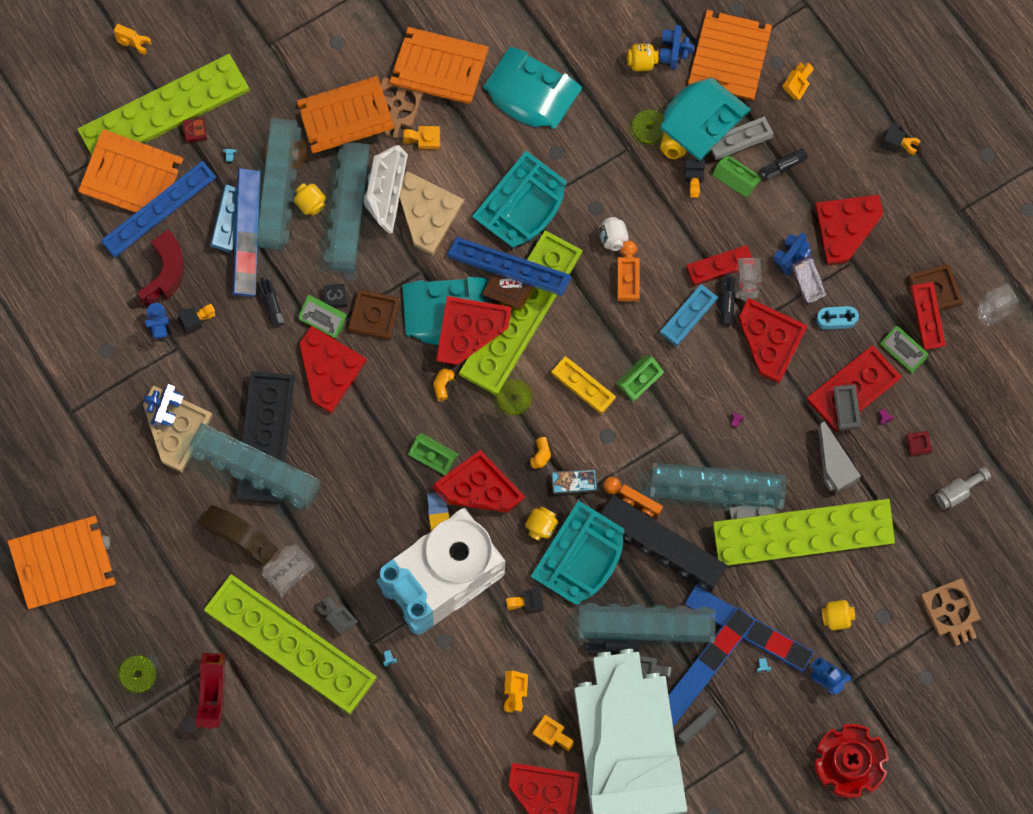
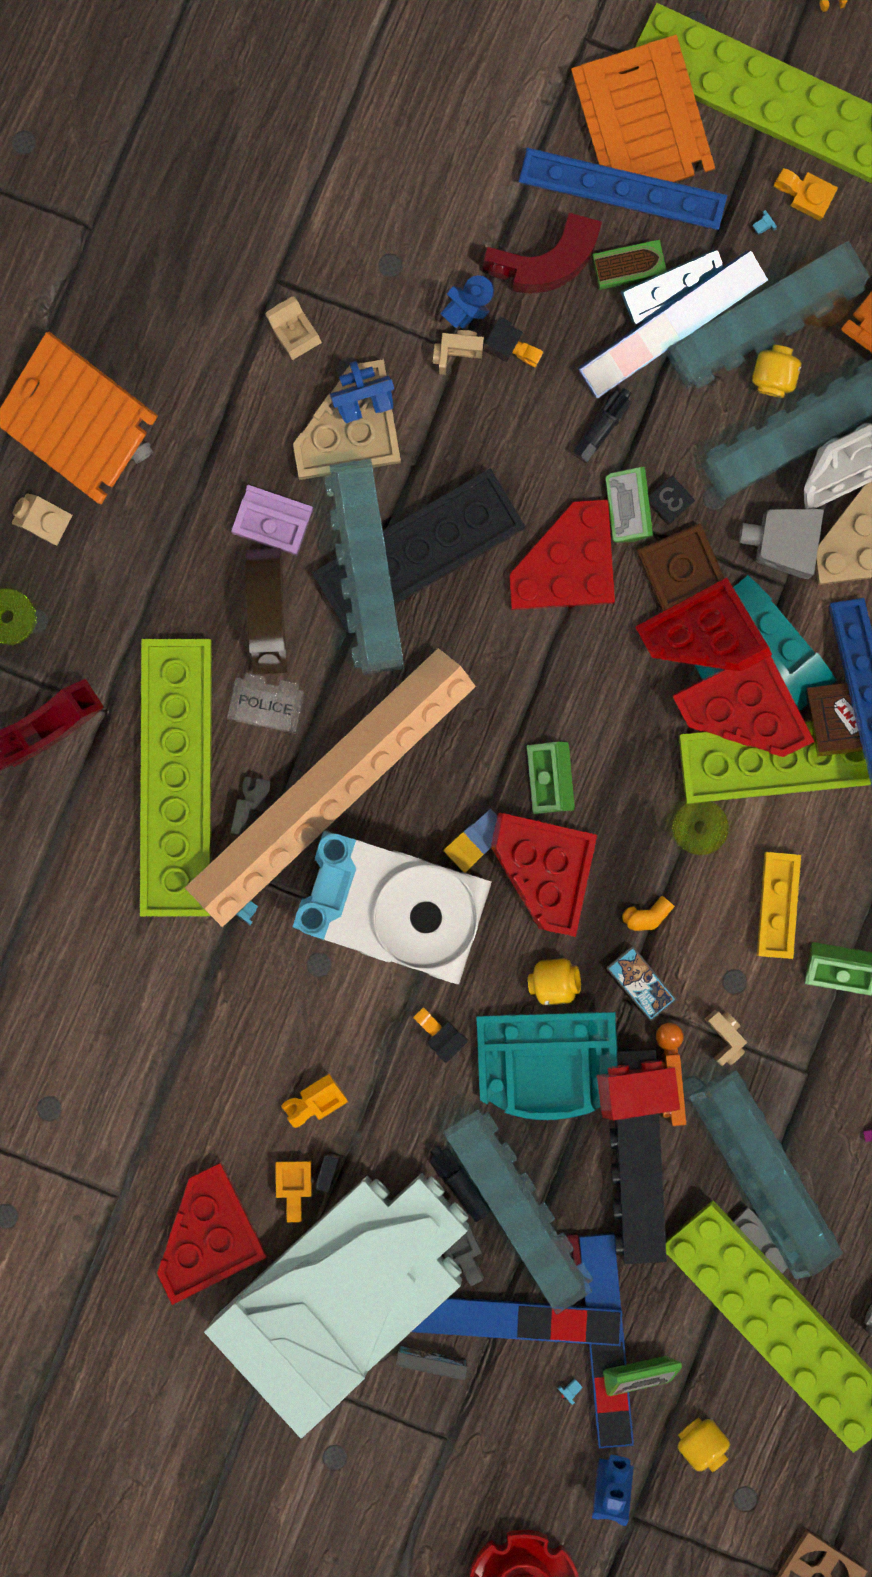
camera: 55 degrees right, 15 degrees up
(99, 618) = (41, 518): none -> tan bracket
(101, 419) = (292, 327): none -> tan bracket
(175, 342) = (462, 344): none -> tan bracket
(192, 500) = (272, 520): none -> lavender plate
(195, 130) = (765, 154): tile -> none
(198, 233) = (628, 264): none -> tile
(232, 122) = (810, 195): none -> light orange plate
(355, 564) = (330, 787): none -> light nougat brick
(399, 253) = (786, 540): none -> light grey torso
(415, 320) = (706, 631): none -> red plate
(440, 381) = (652, 718): light orange arm -> none
(557, 710) = (327, 1171): none -> black tile
(627, 454) = (726, 1027): none -> tan bracket
(627, 514) = (638, 1091): none -> red brick
(779, 621) = (640, 1375): none -> bright green slope

